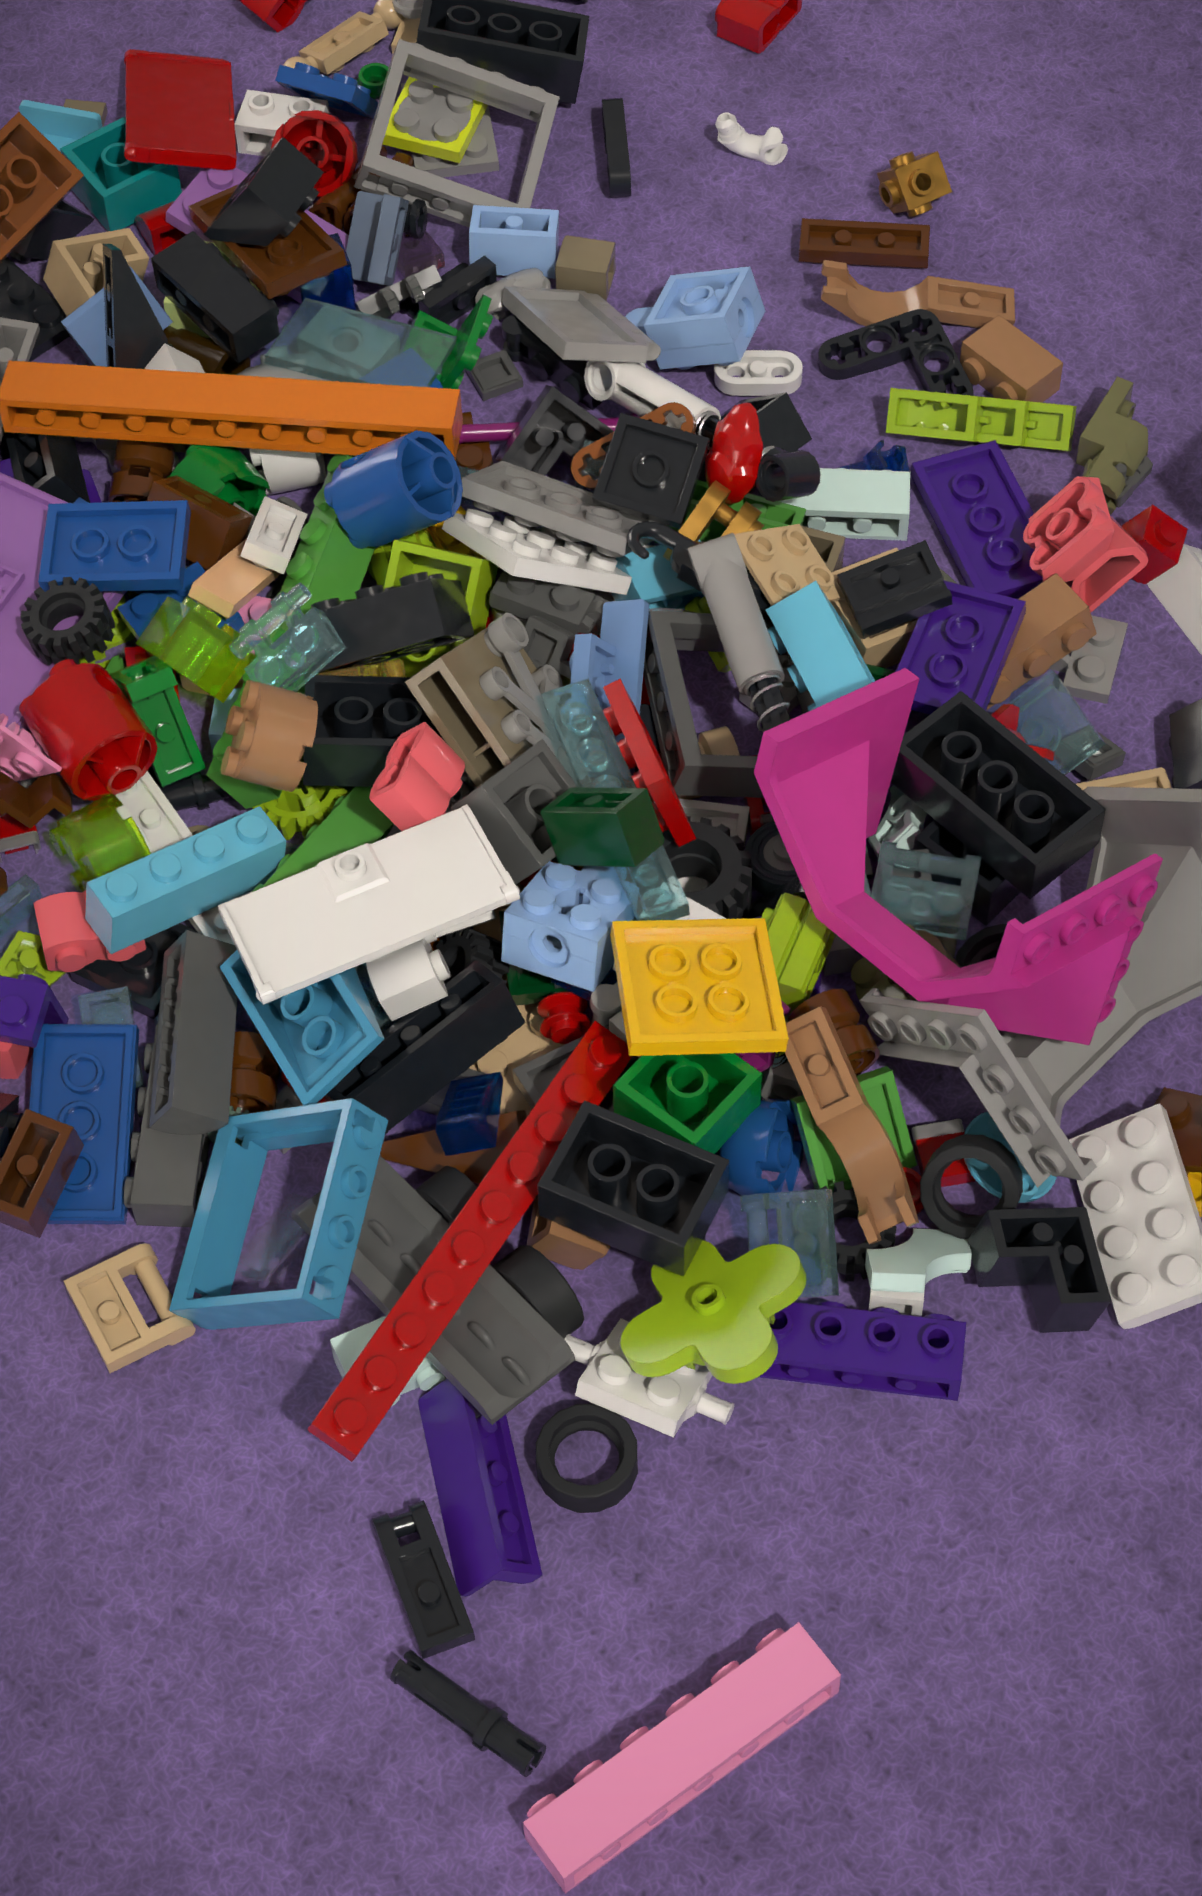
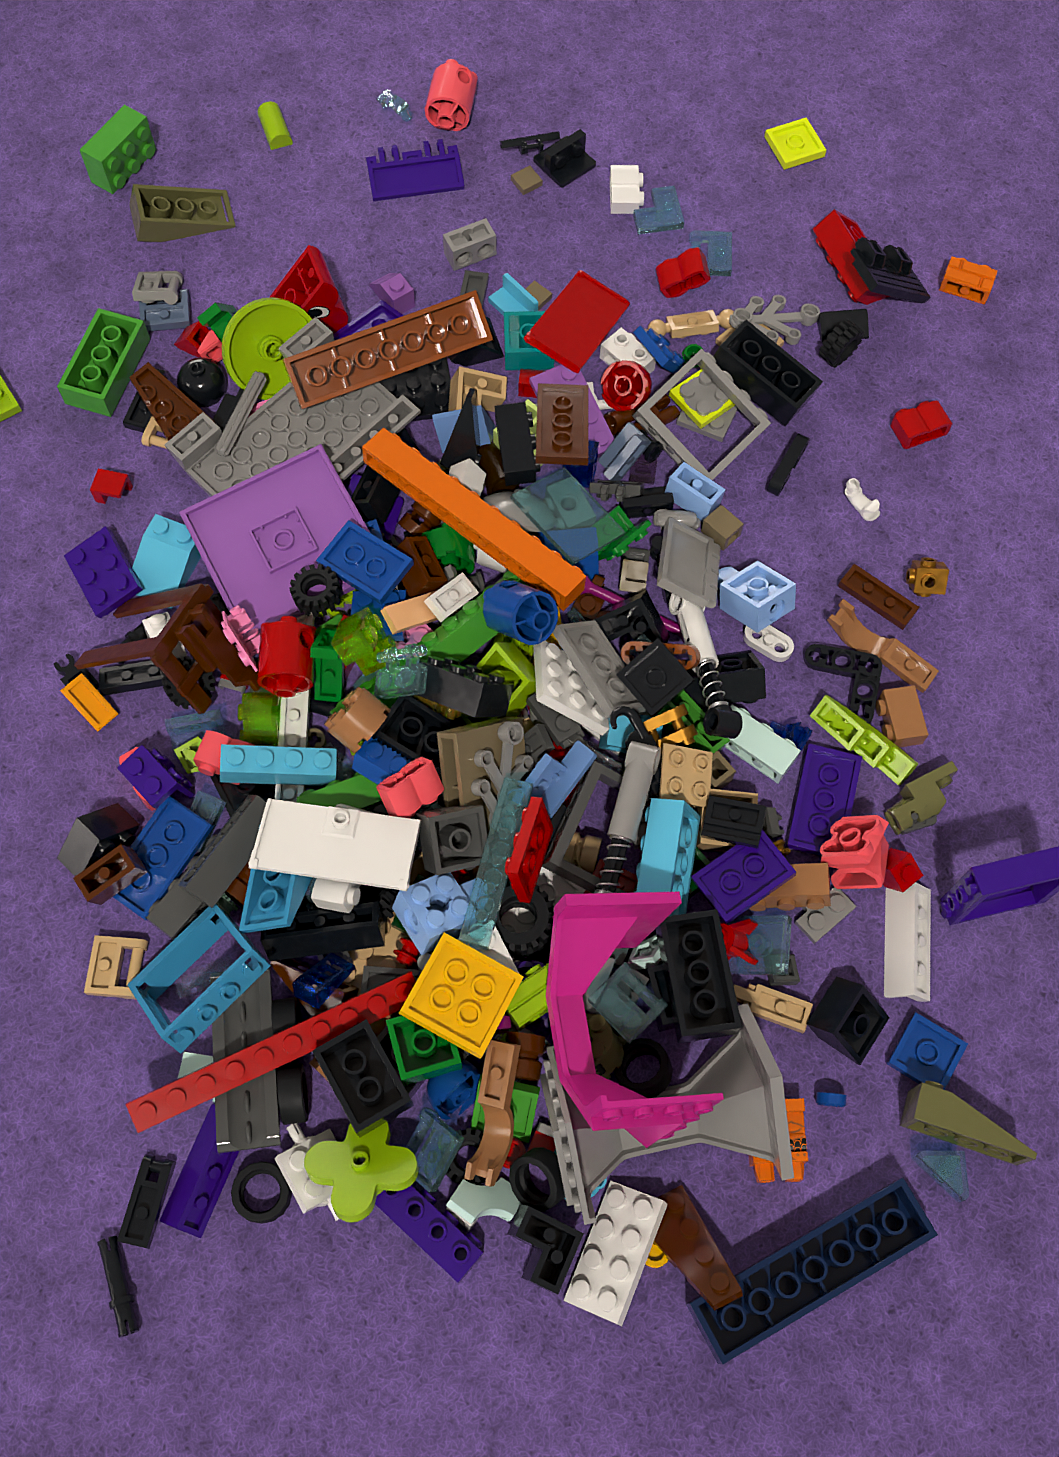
camera: 30 degrees right, 10 degrees up
(268, 198) = (571, 406): black slope -> none
(338, 789) = (377, 761): none -> blue brick
(507, 391) = (633, 576): none -> dark tan panel
(603, 826) = (475, 876): dark green panel -> none
(680, 1756) = (193, 1381): bright pink brick -> none
(735, 452) = (703, 694): red arm -> none

